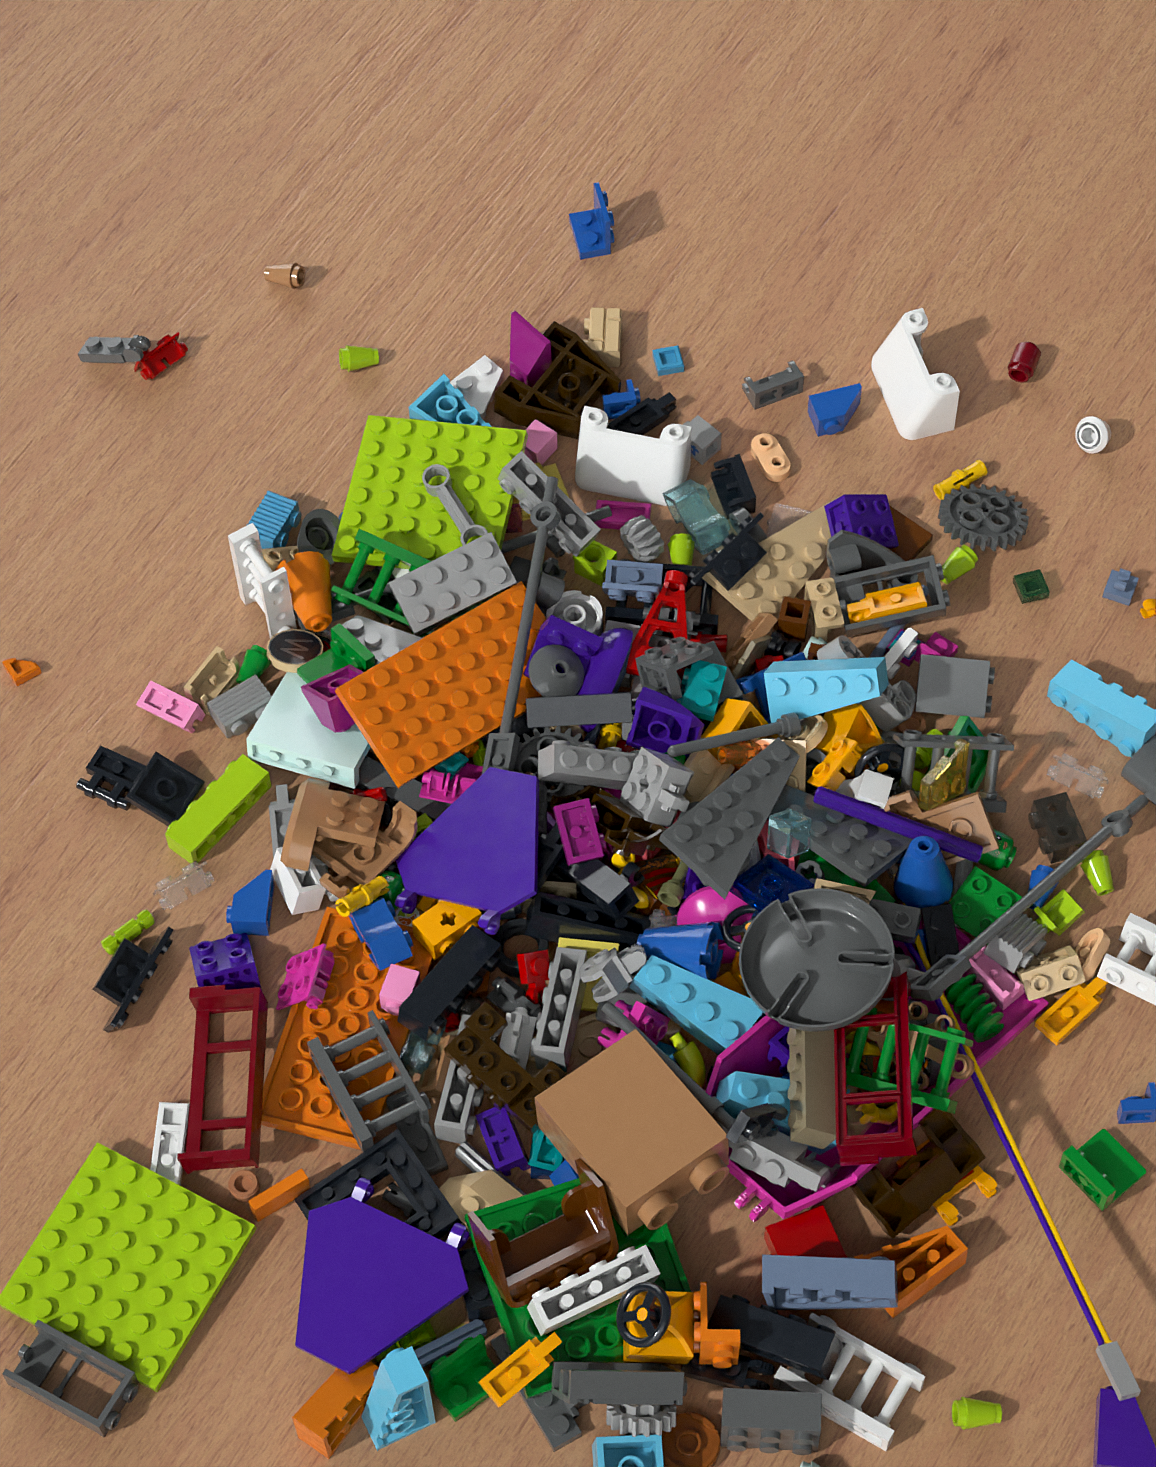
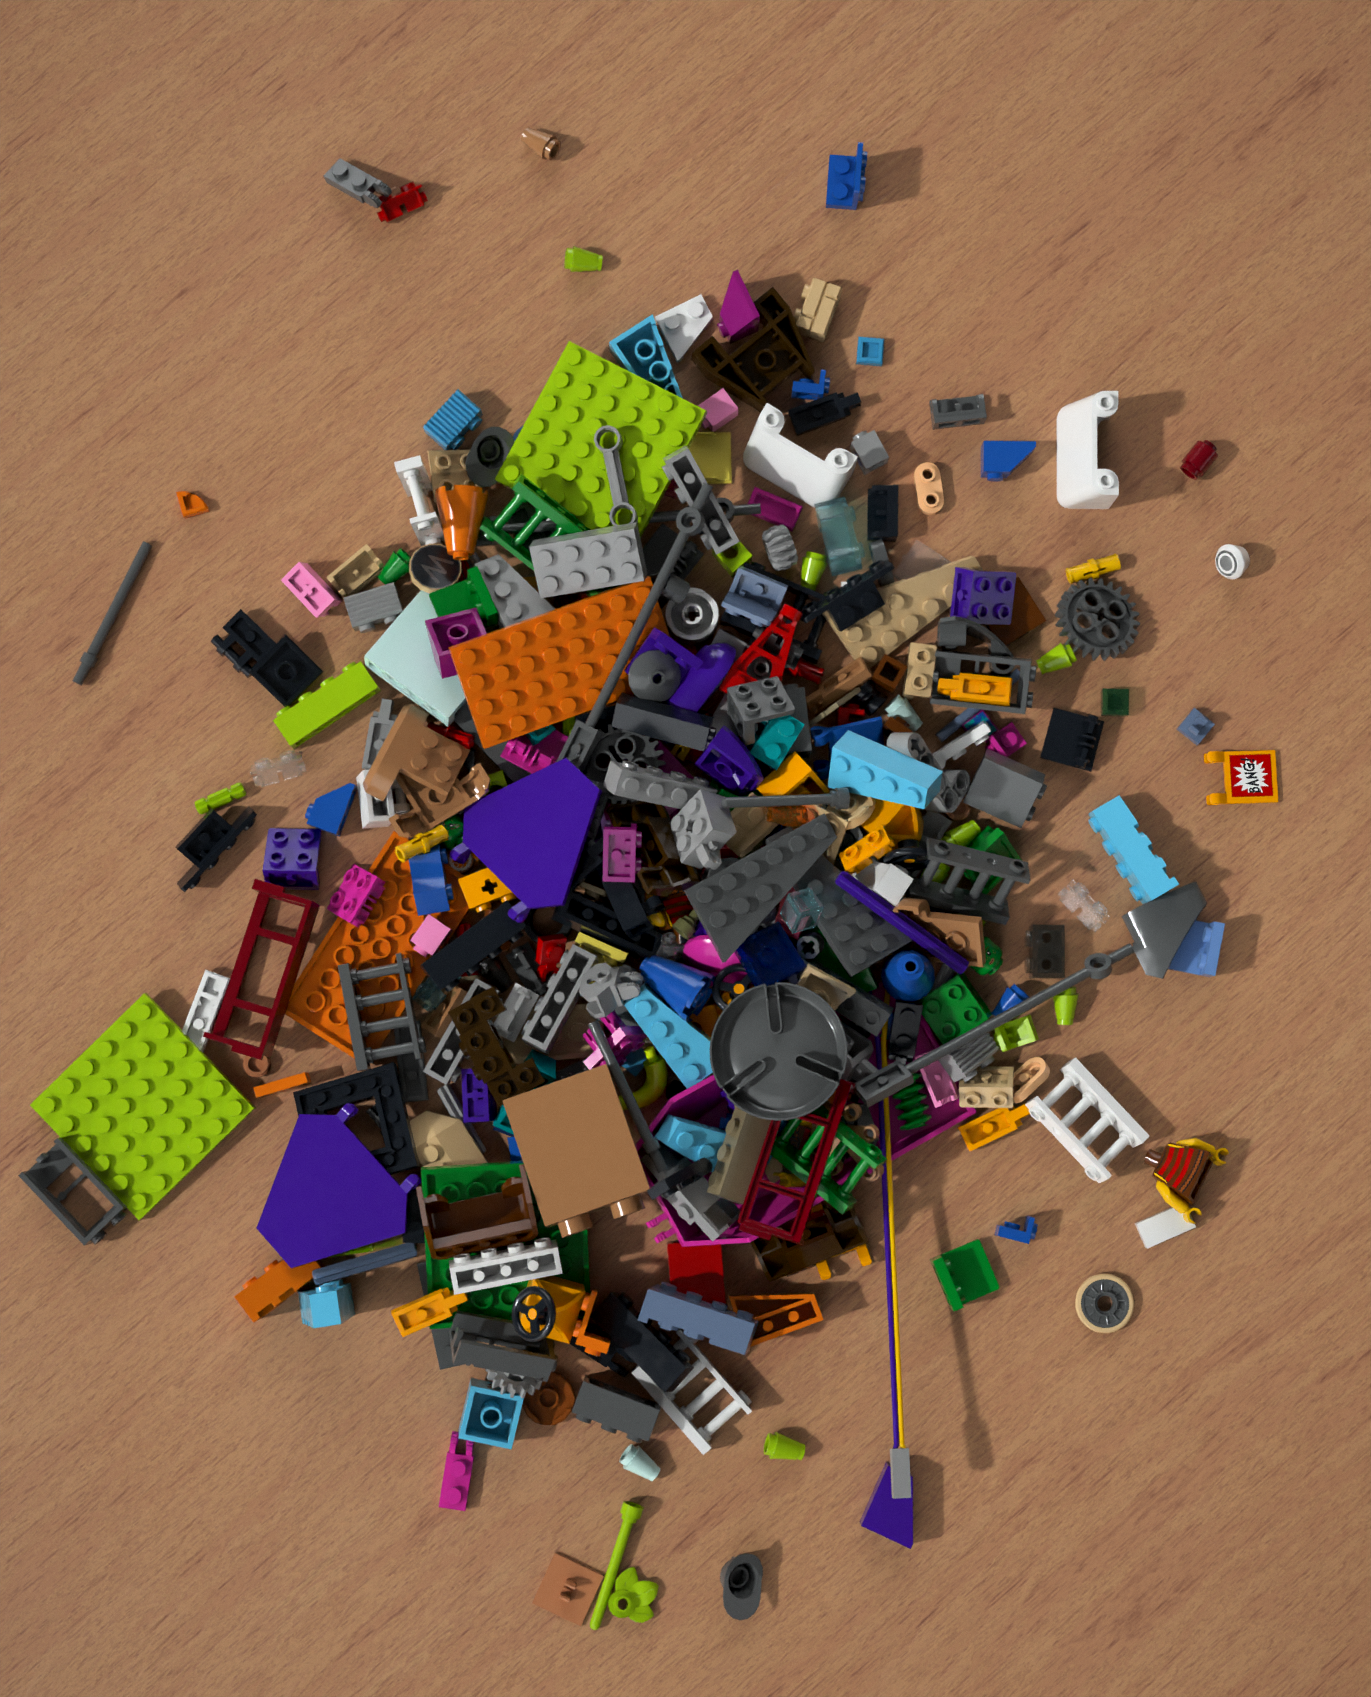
camera: 15 degrees right, 25 degrees up
(457, 1377) = (392, 1292): green bracket -> none
(945, 779) = (957, 896): clear yellow wing -> none
(1003, 631) = (1072, 739): none -> black hinge

